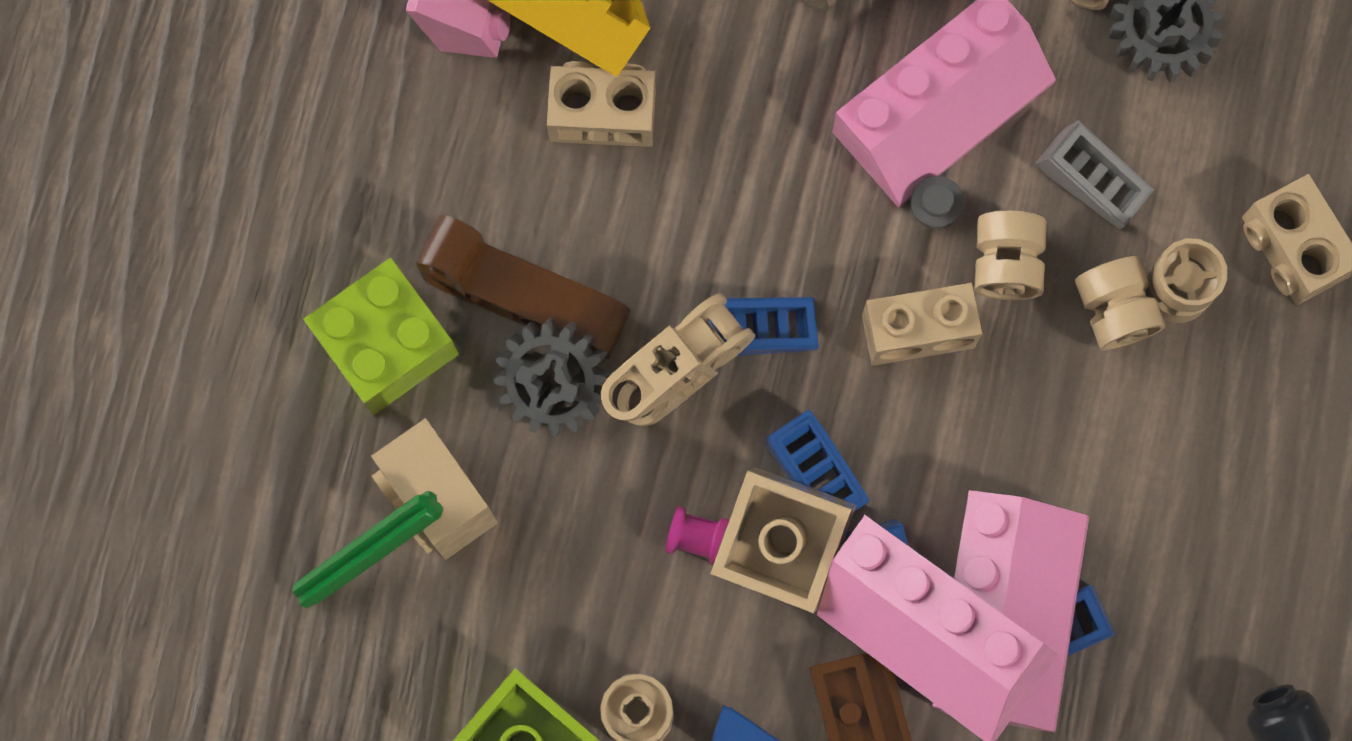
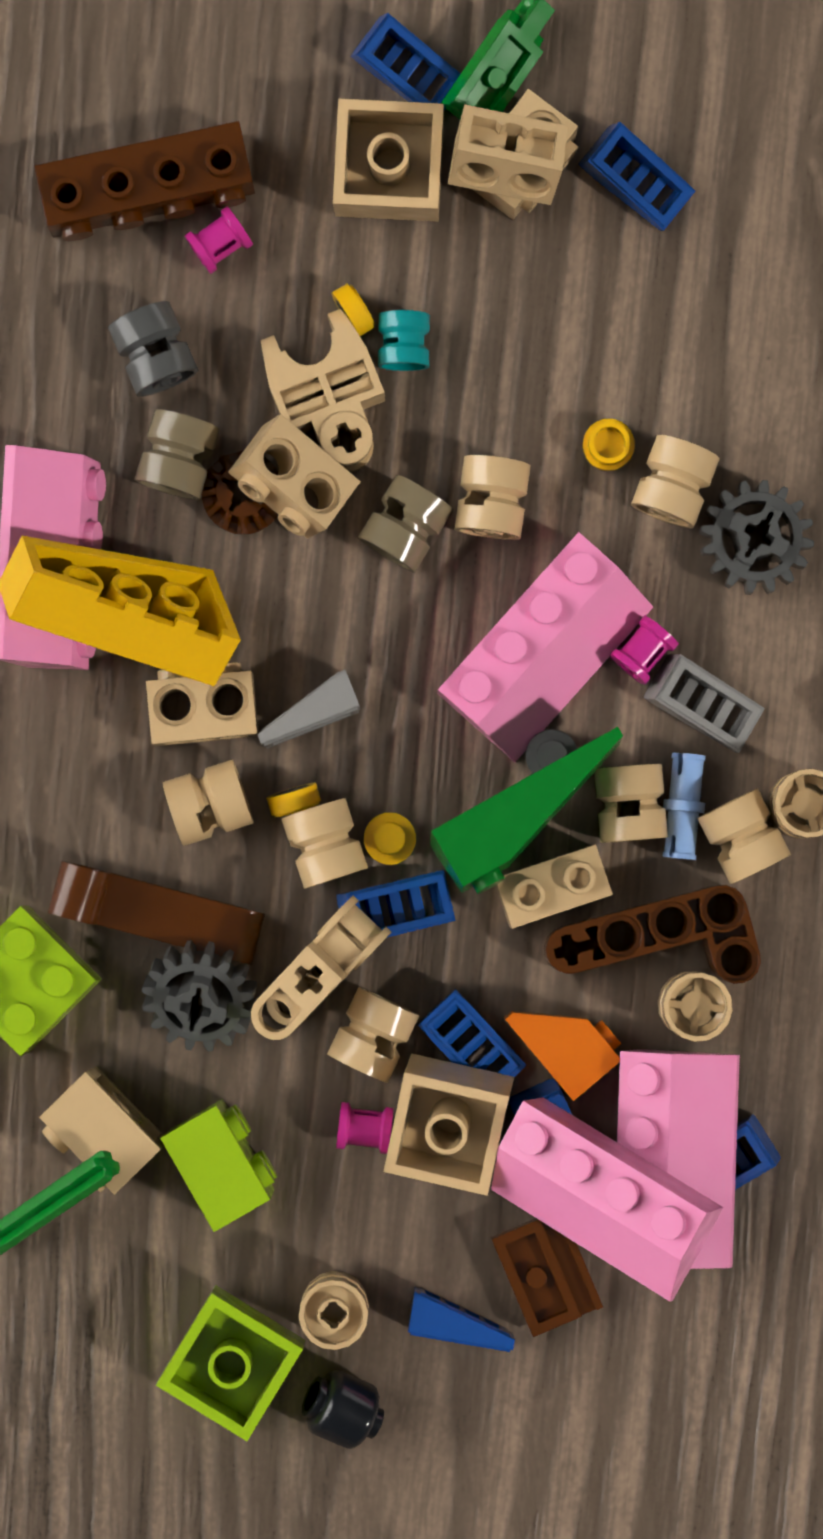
camera: 15 degrees left, 10 degrees up
(542, 541) = (220, 1163): none -> lime brick
(611, 189) = (208, 802): none -> tan wheel
(676, 205) = (294, 800): none -> yellow tile
(699, 240) = (324, 843): none -> tan wheel
(710, 125) = (321, 707): none -> light grey slope
(720, 441) = (373, 1035): none -> tan wheel
(765, 258) = (389, 838): none -> yellow plate
(871, 252) = (497, 831): none -> green wedge
(913, 484) = (568, 1047): none -> orange slope
(1012, 393) = (647, 938): none -> reddish brown beam
(1042, 115) = (644, 650): none -> dark pink bush
(1049, 461) = (695, 1005): none -> tan wheel
(1062, 269) = (684, 806): none -> light blue pin

